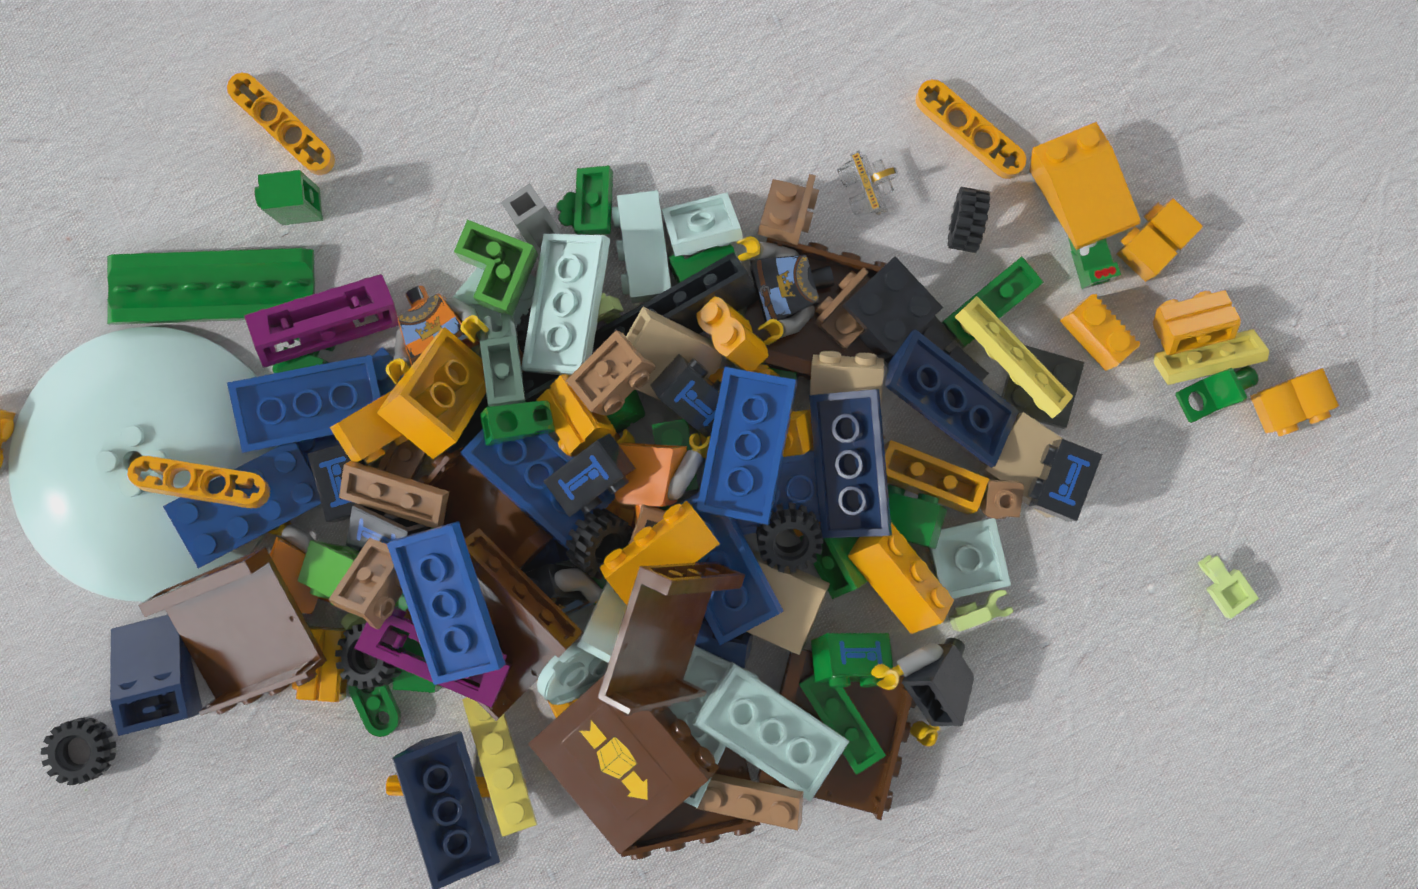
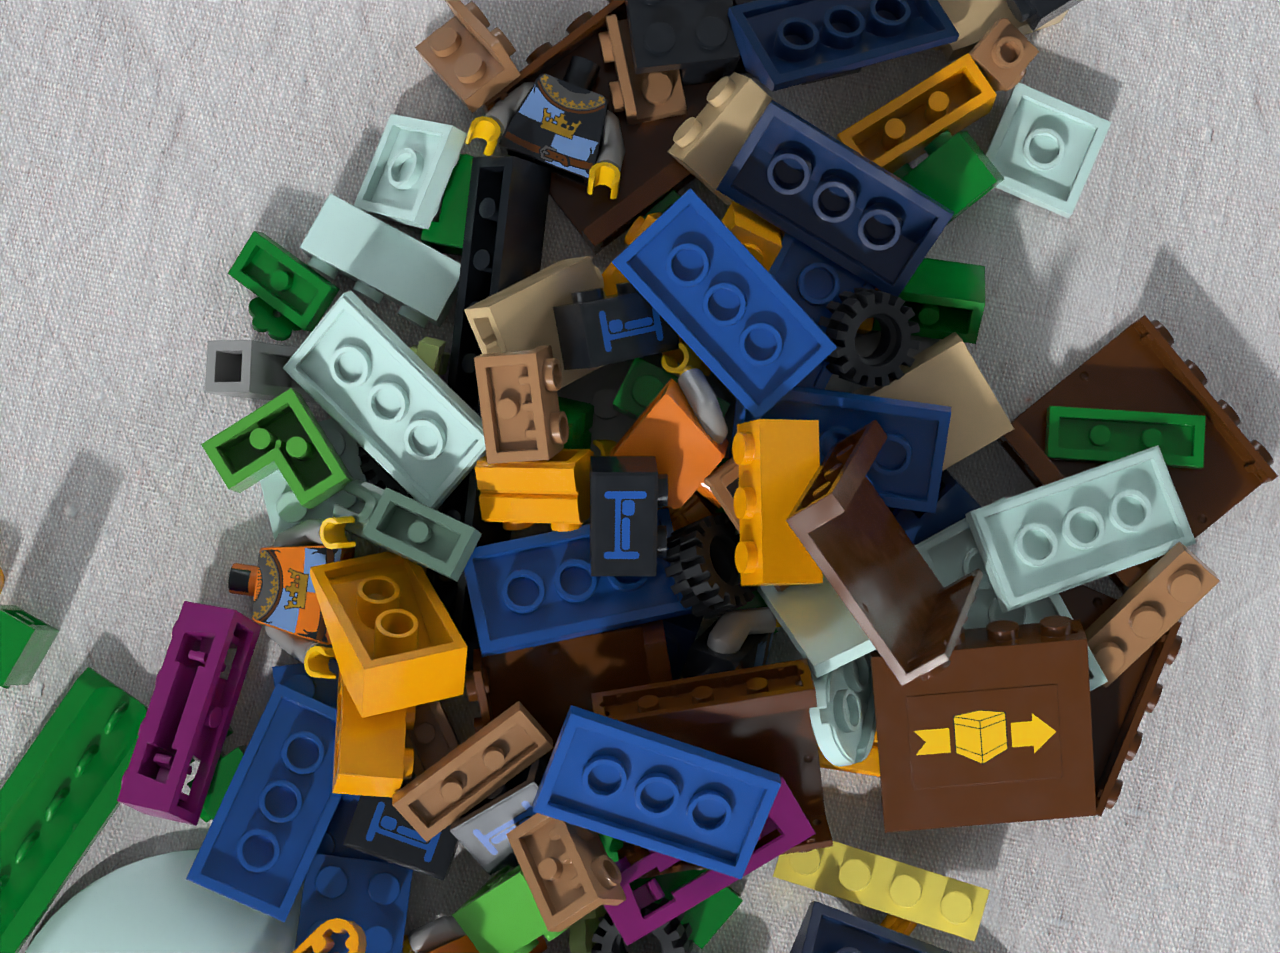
camera: 50 degrees left, 0 degrees up
(516, 421) = (494, 559): green leg -> none
(732, 334) = (574, 229): light orange brick -> none
(850, 658) = (1062, 371): green brick -> none
(902, 580) = (1013, 244): light orange brick -> none
(936, 682) = (1165, 291): black torso -> none
(971, 615) = (1113, 194): yellowish green plate -> none

